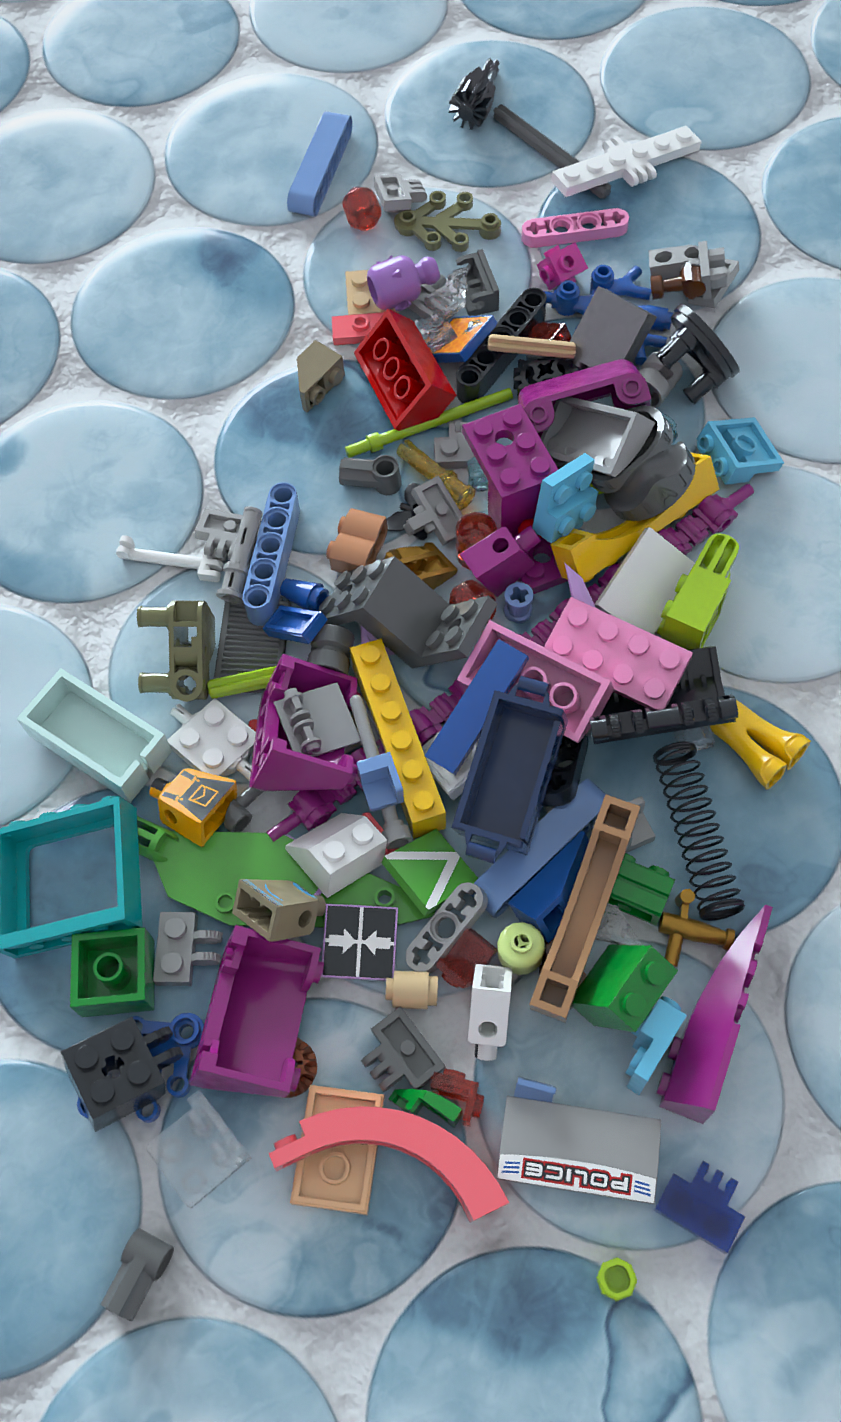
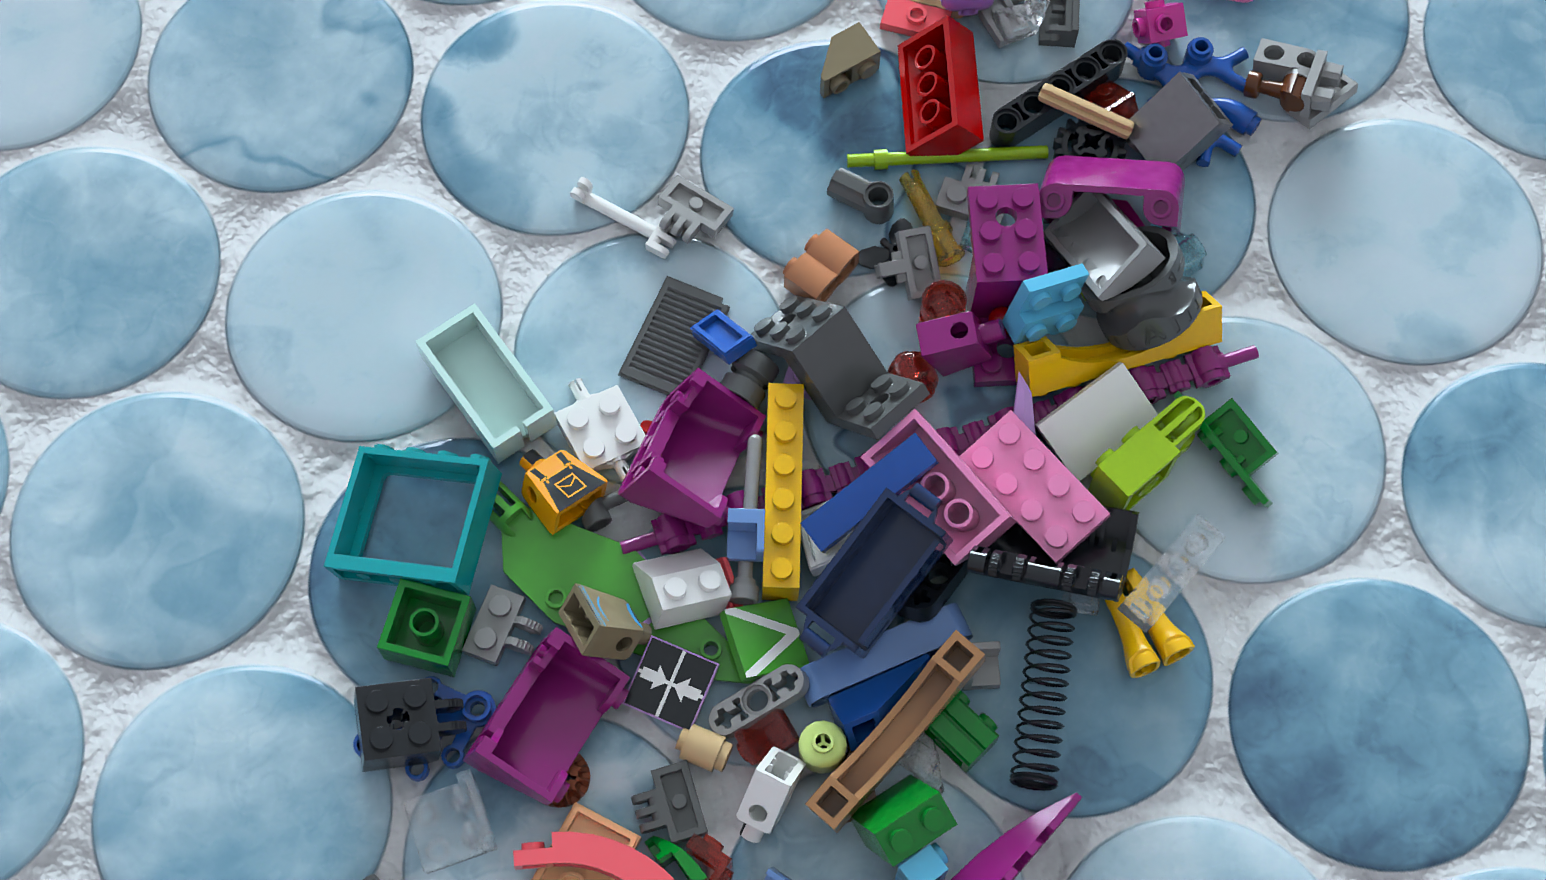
camera: 15 degrees right, 5 degrees up
(185, 656) = (604, 331): olive piece -> none
(238, 566) = (687, 255): light grey pin -> none
(239, 682) = (648, 378): lime axle -> none
(271, 553) = (724, 262): medium blue beam -> none
(304, 593) = (746, 305): blue cone -> none
(317, 720) = (708, 448): light grey hinge -> none
(426, 563) = (877, 314): pearl gold slope -> none
(435, 331) = (993, 54): clear slope -> none
(470, 333) = (1016, 72): tile -> none
(518, 602) = (952, 398): medium blue bush -> none
(659, 378) = (1209, 191): light grey wheel -> none
(682, 927) = (990, 785): pearl gold piece -> none
(704, 346) = (1262, 165): black piece -> none
(738, 449) = (1262, 304): medium azure plate -> none
(763, 688) = (1171, 573): none -> clear plate
(772, 566) = (1240, 444): none -> green bracket

